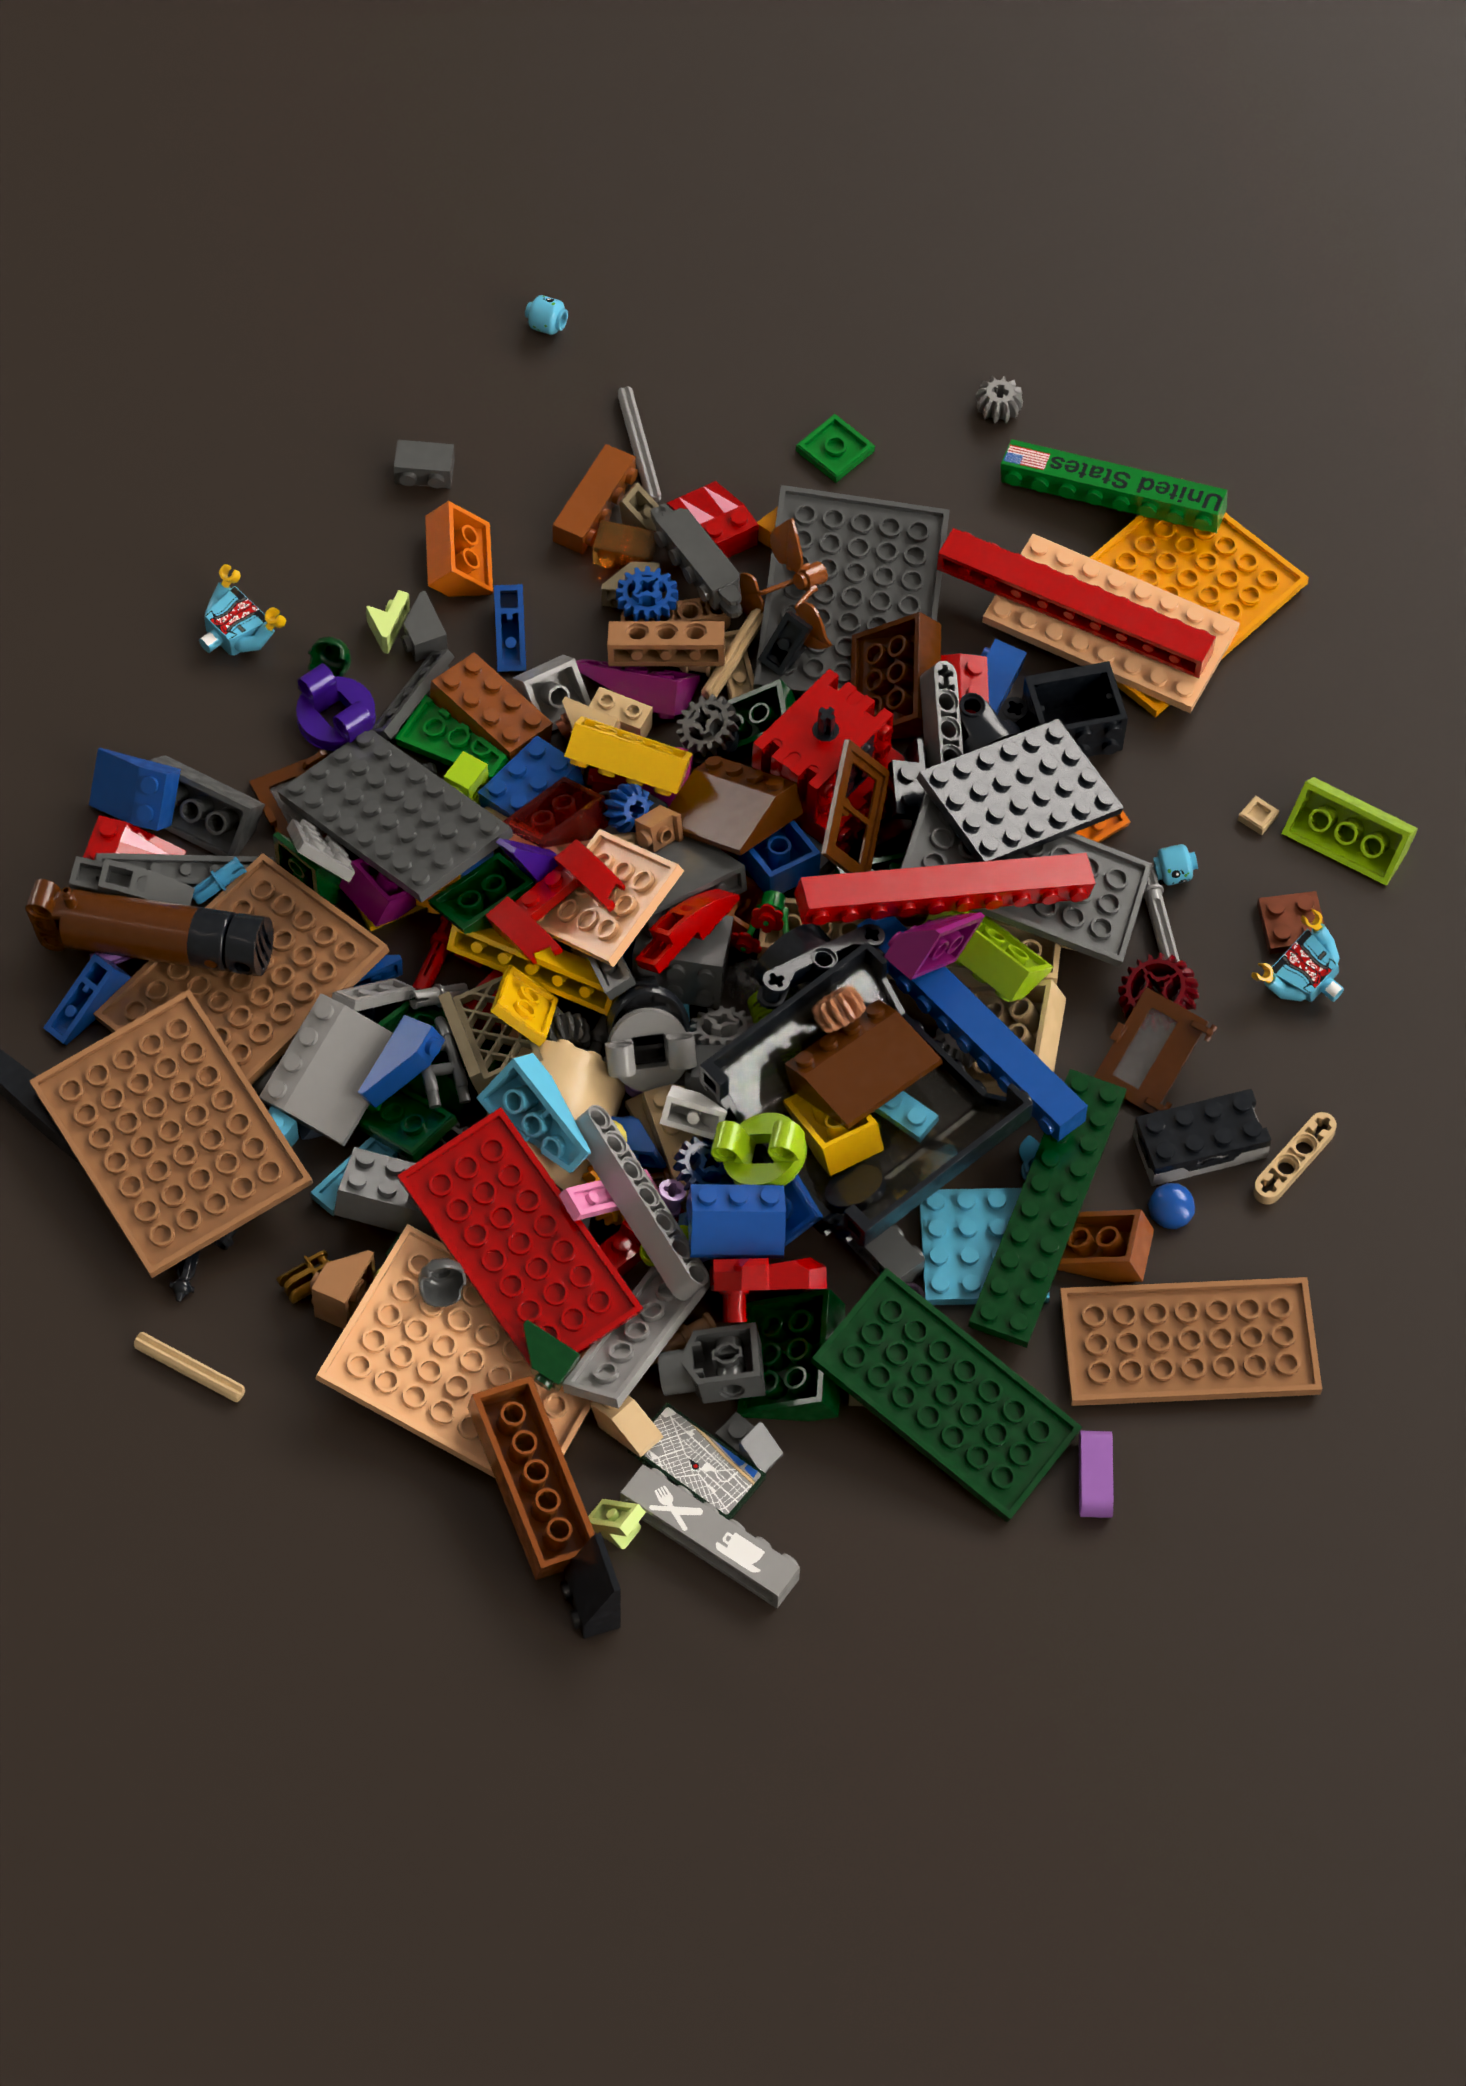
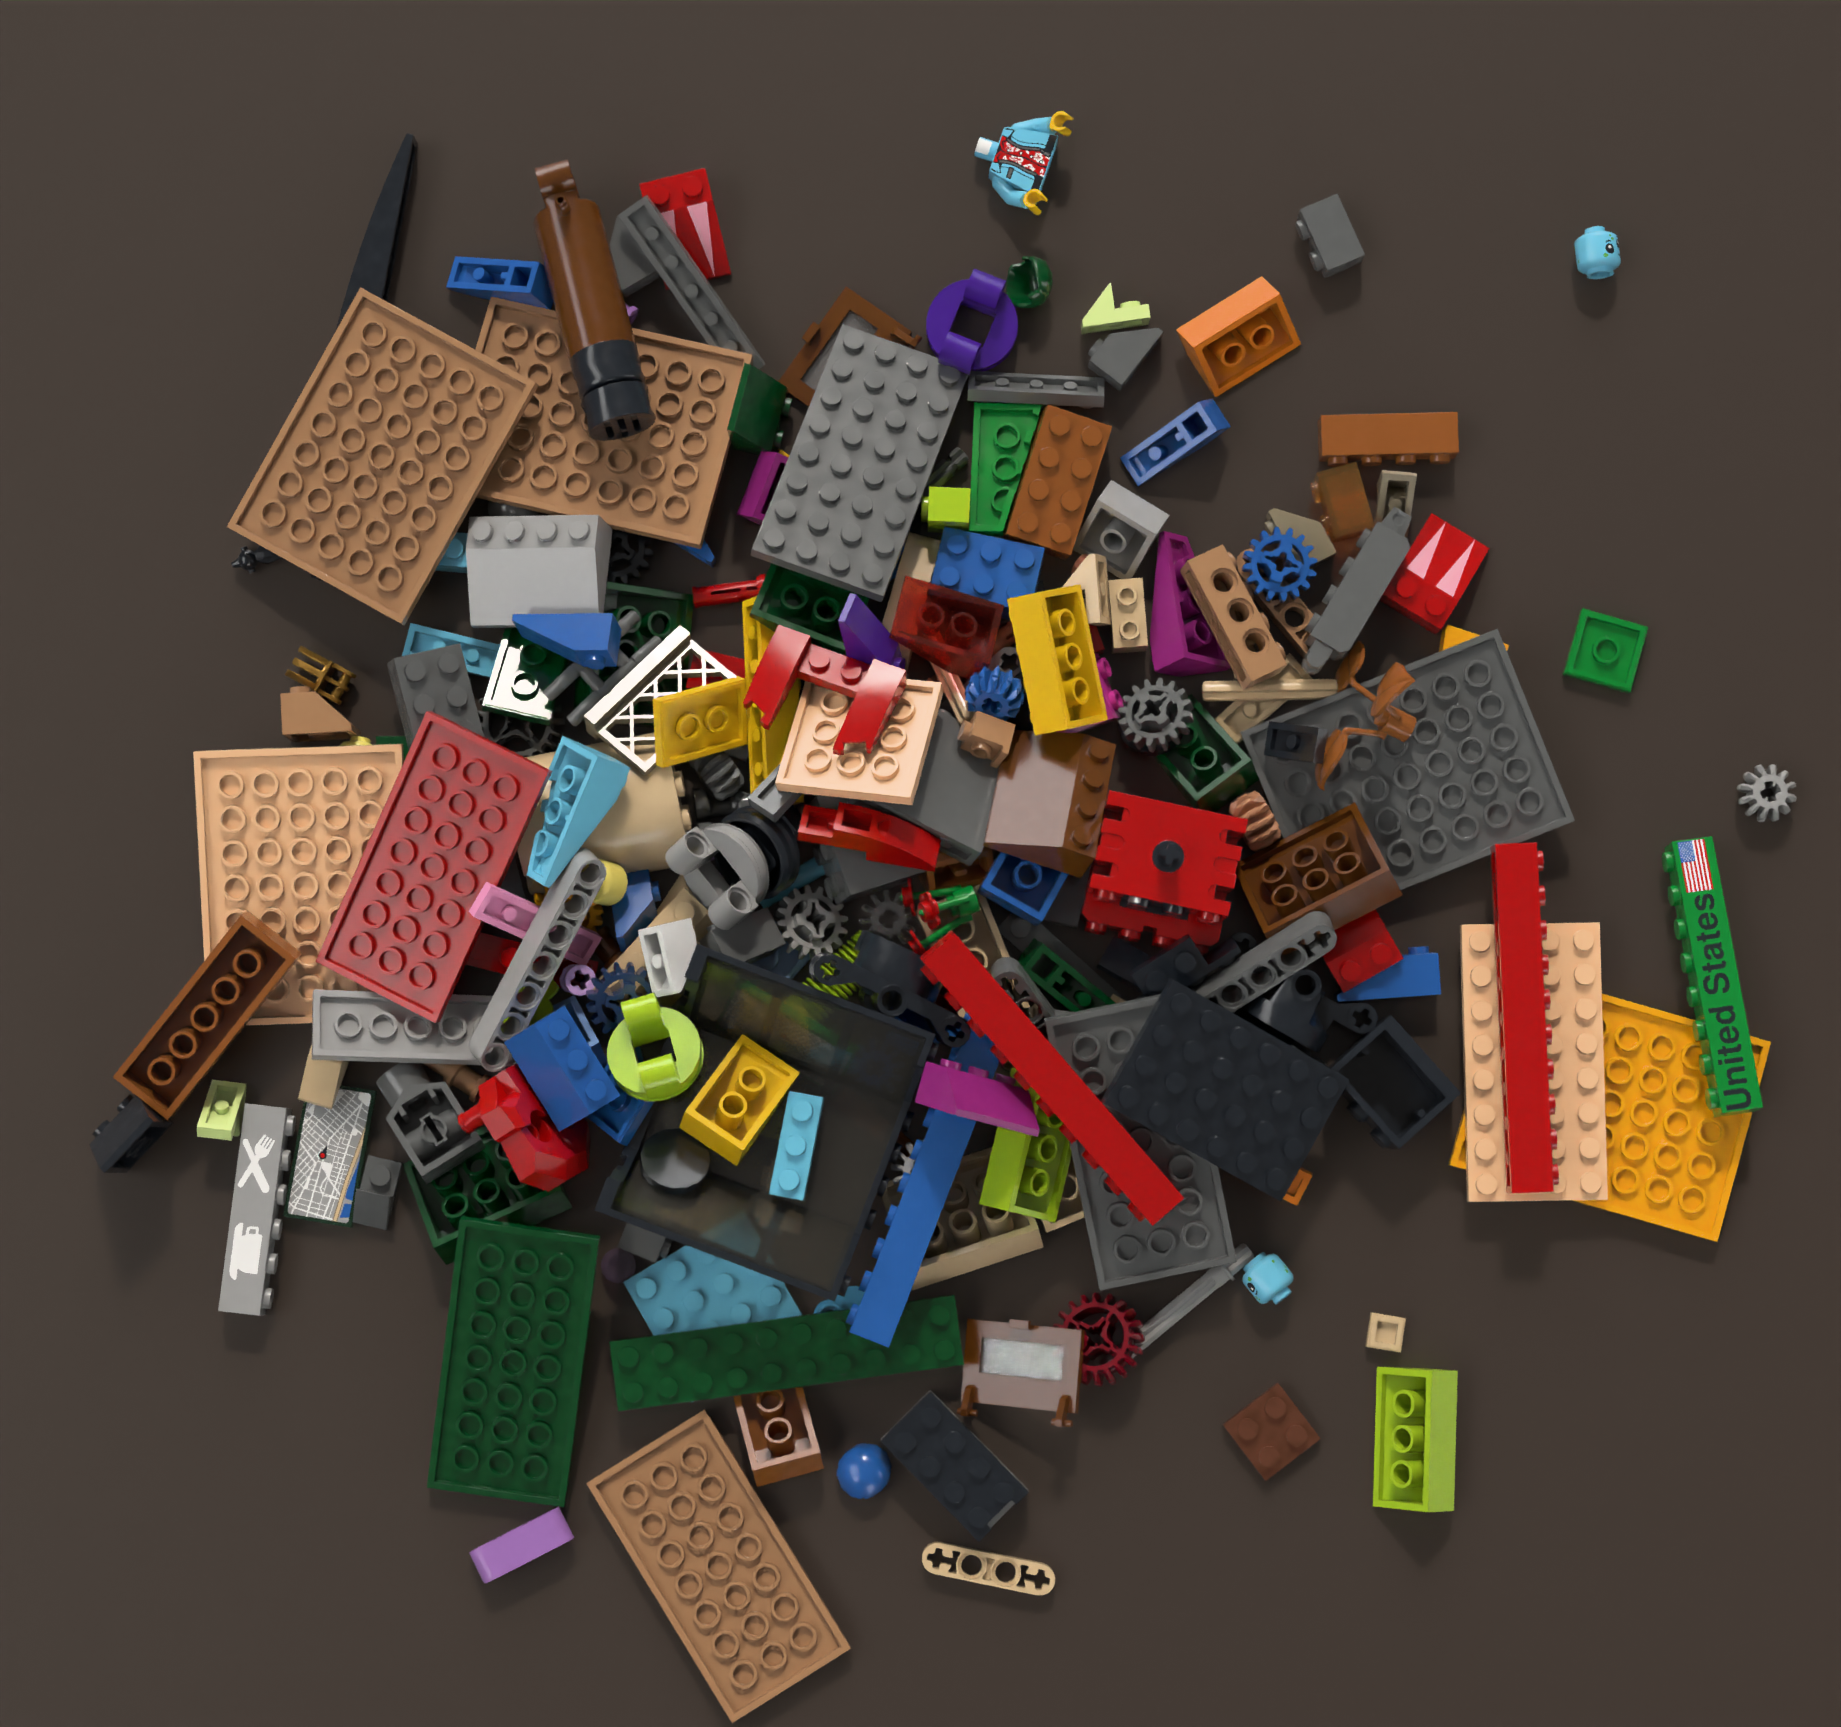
camera: 65 degrees right, 25 degrees up
(128, 881) = (628, 254): dark grey slope -> none
(134, 789) = (755, 186): blue slope -> none
(189, 1367) = (169, 617): tan axle -> none
(212, 812) = (782, 254): dark grey slope -> none
(218, 880) = (696, 330): dark azure axle -> none
(320, 849) = (769, 414): light grey plate -> none
(373, 994) = (649, 559): light grey tile -> none
(429, 996) = (698, 620): light grey axle -> none
(441, 1282) = (350, 815): dark grey hair -> none
(548, 1357) = (330, 961): dark green slope -> none
(639, 443) = (1489, 443): light grey axle -> none
(838, 1008) = (846, 1045): nougat gear -> none
(842, 807) = (1090, 921): reddish brown door -> none
(861, 1065) = (808, 1099): reddish brown slope -> none
(1306, 966) = (1211, 1475): torso -> none

